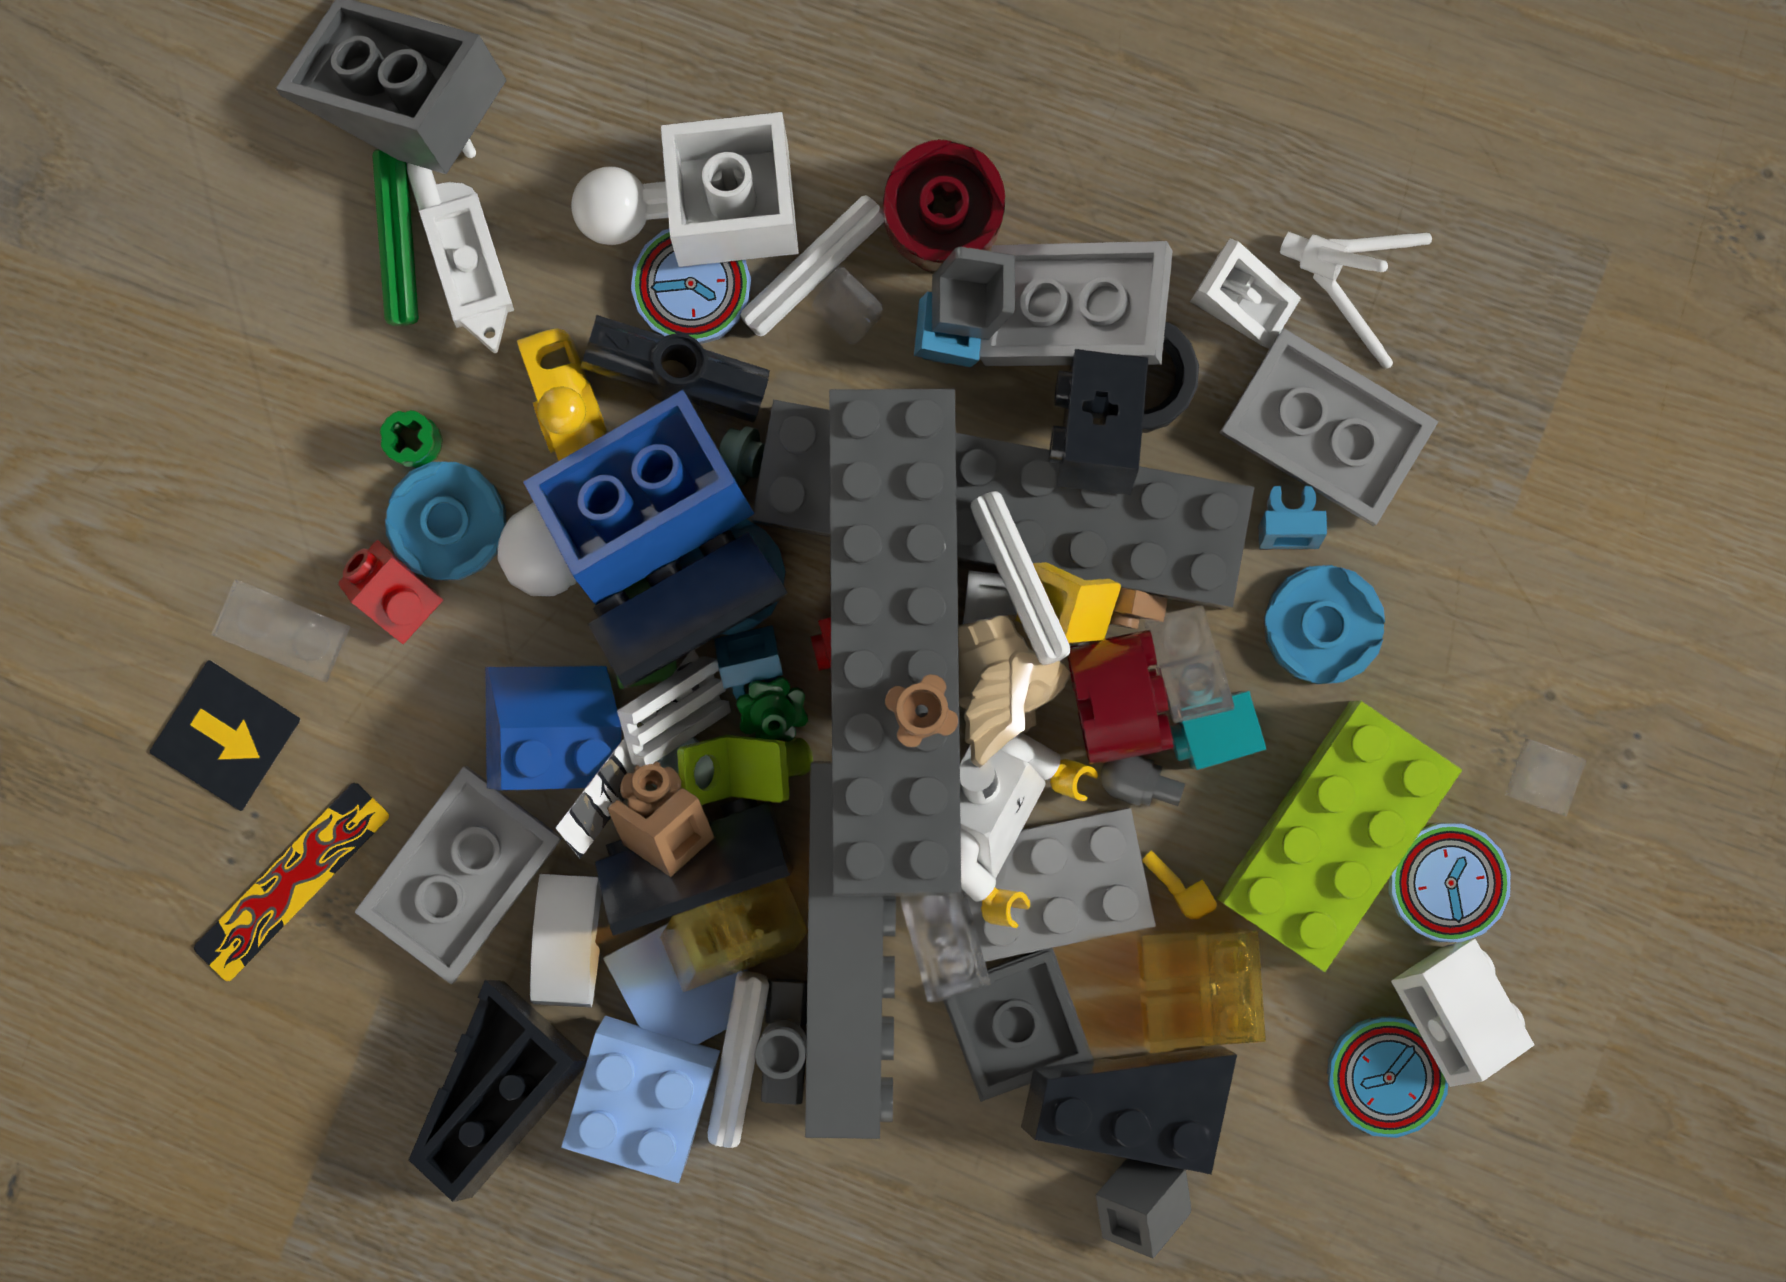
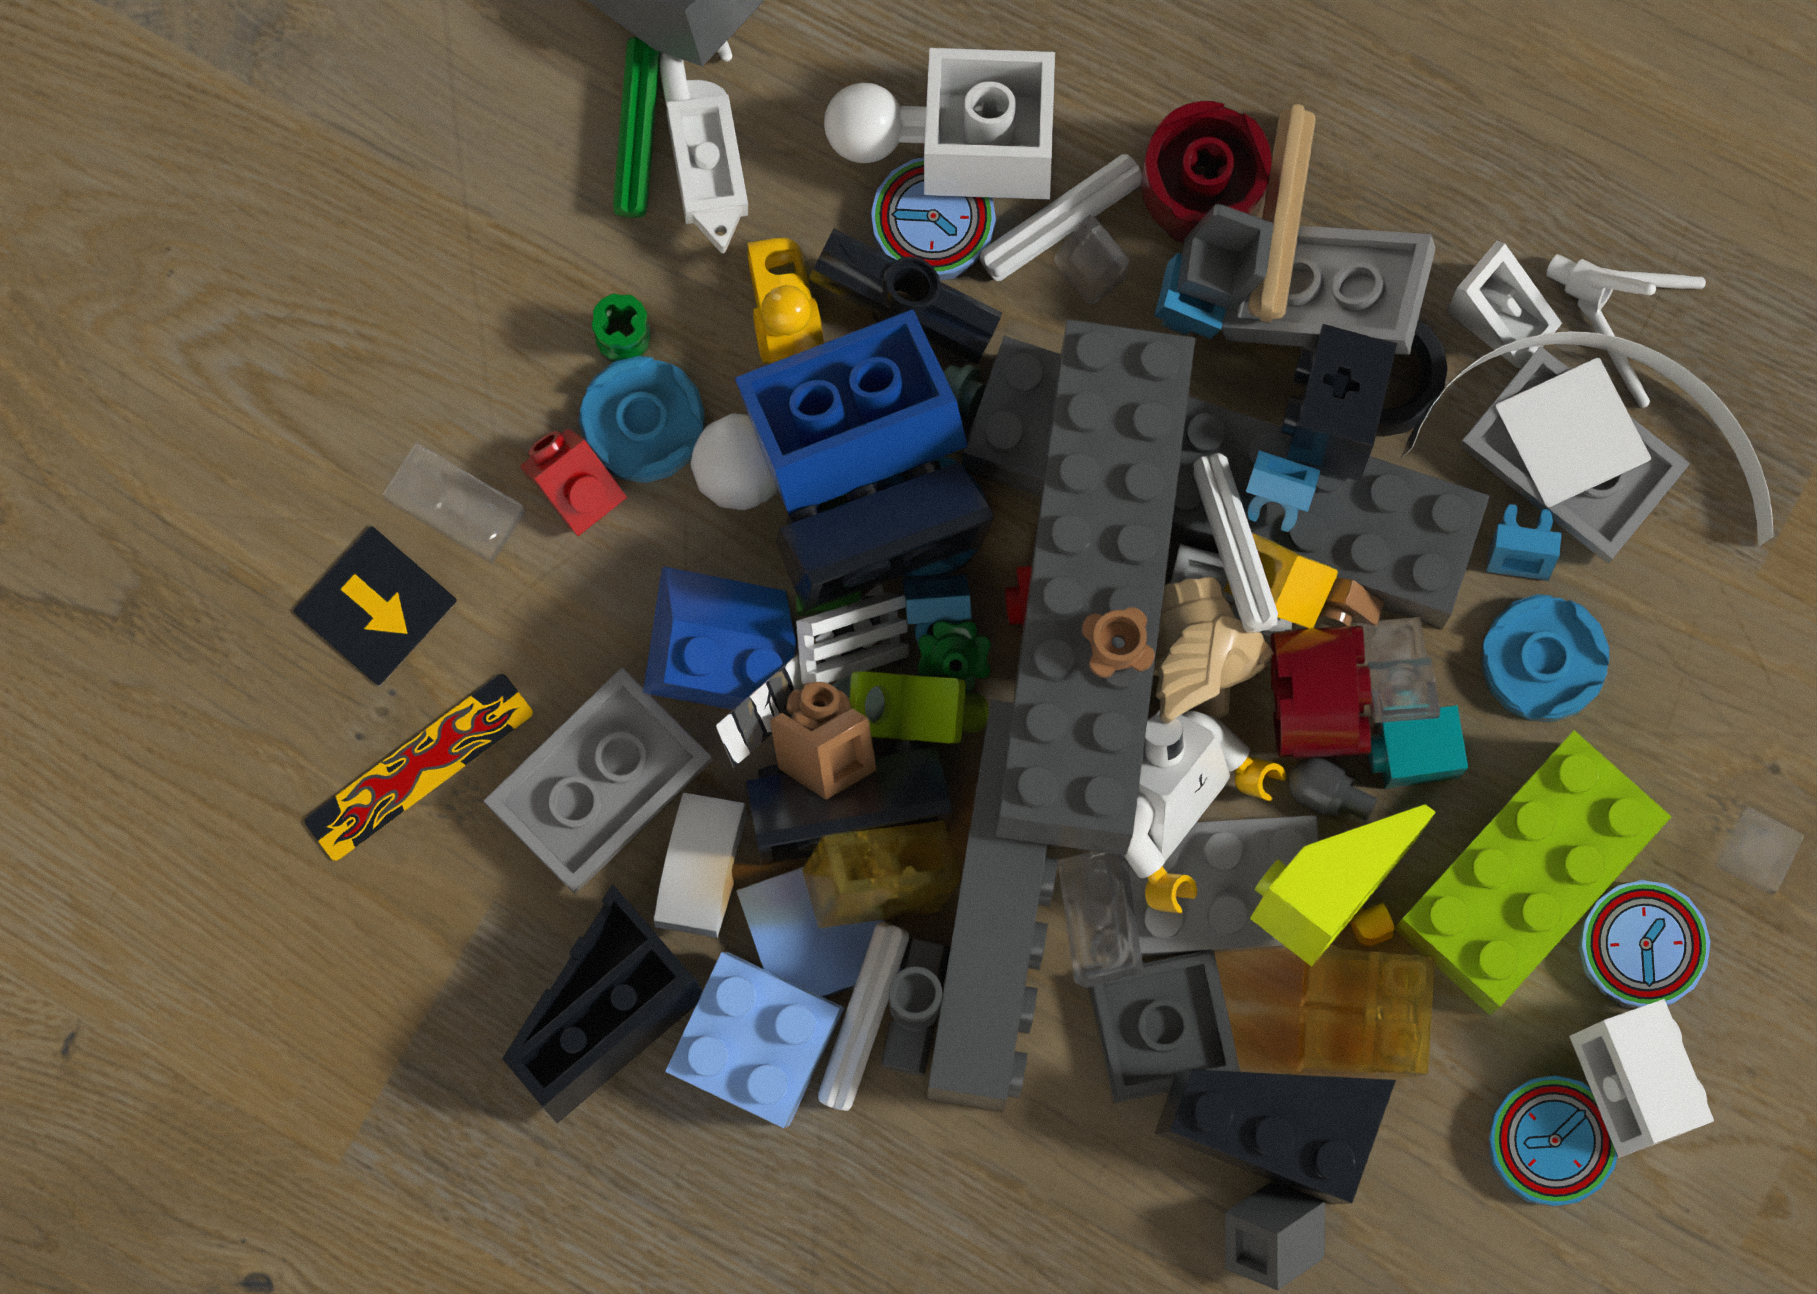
camera: 10 degrees right, 10 degrees down
(1023, 231) = (1284, 209): none -> tan axle
(1056, 512) = (1281, 482): none -> dark azure tile
(1151, 881) = (1332, 880): none -> neon yellow slope
(1325, 408) = (1573, 432): none -> white sticker
(1455, 361) = (1679, 375): none -> white sticker

